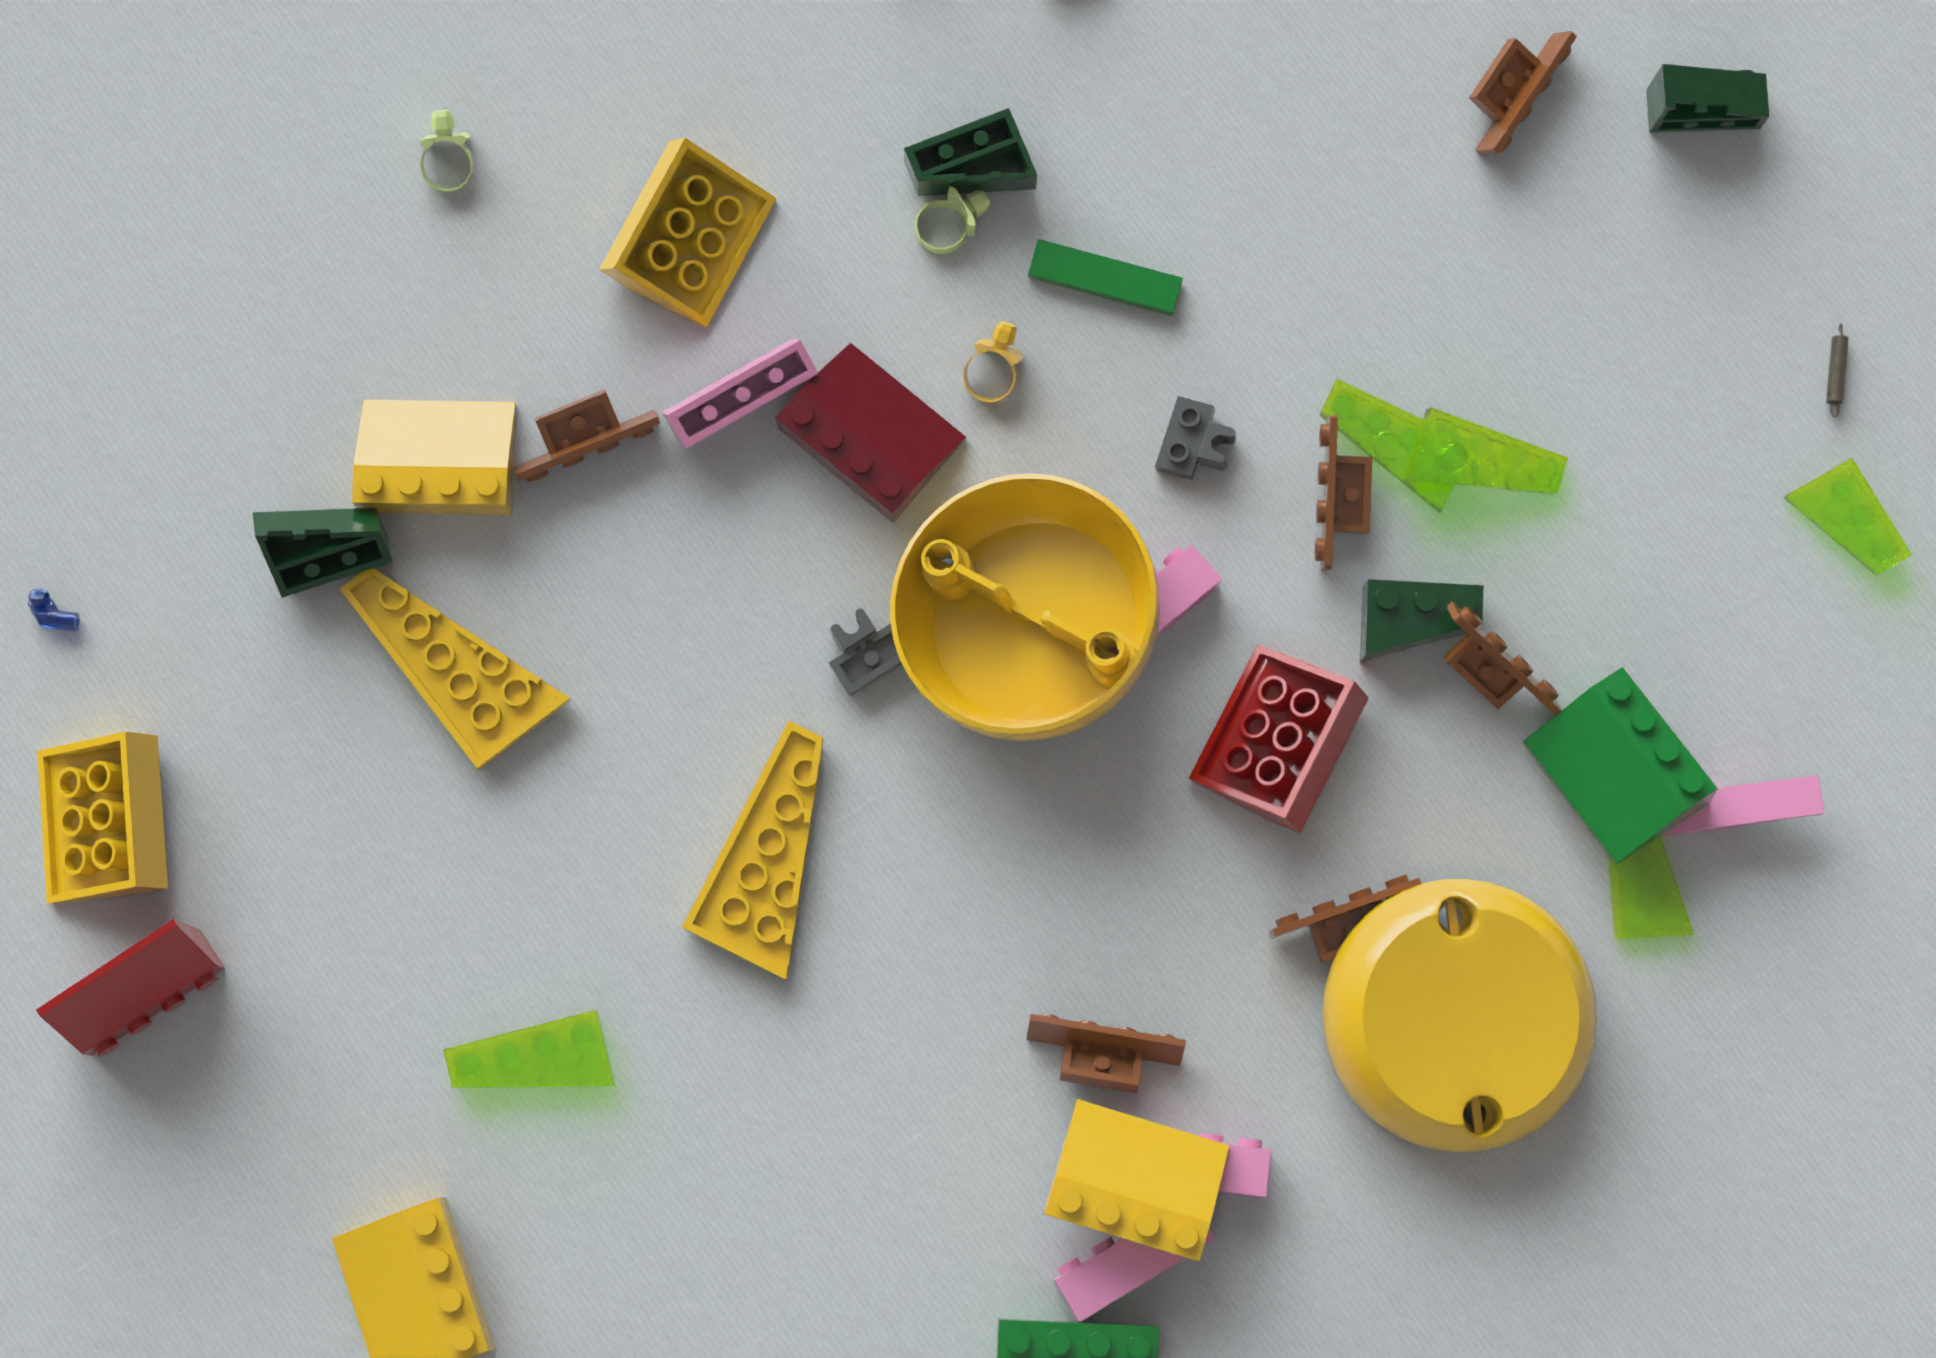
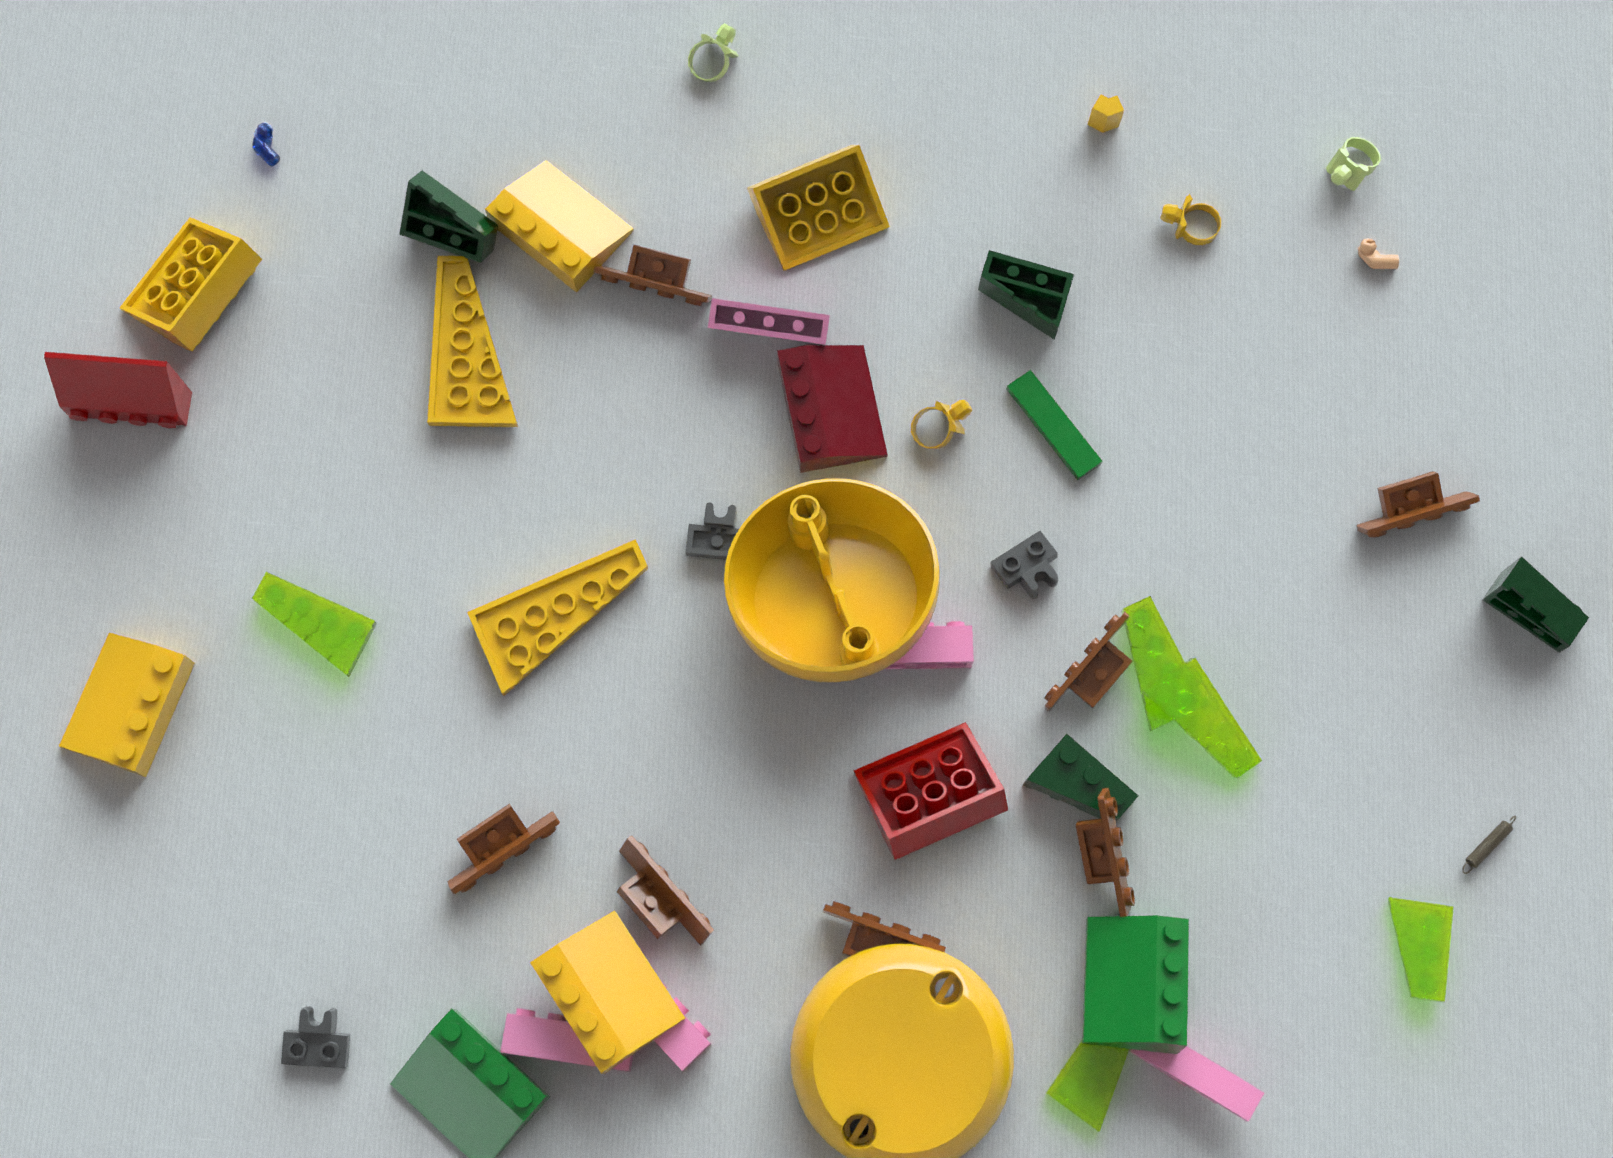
camera: 40 degrees right, 5 degrees down
(903, 1127) = (495, 842): none -> dark orange bracket
(974, 204) = (1007, 319): yellowish green piece -> none

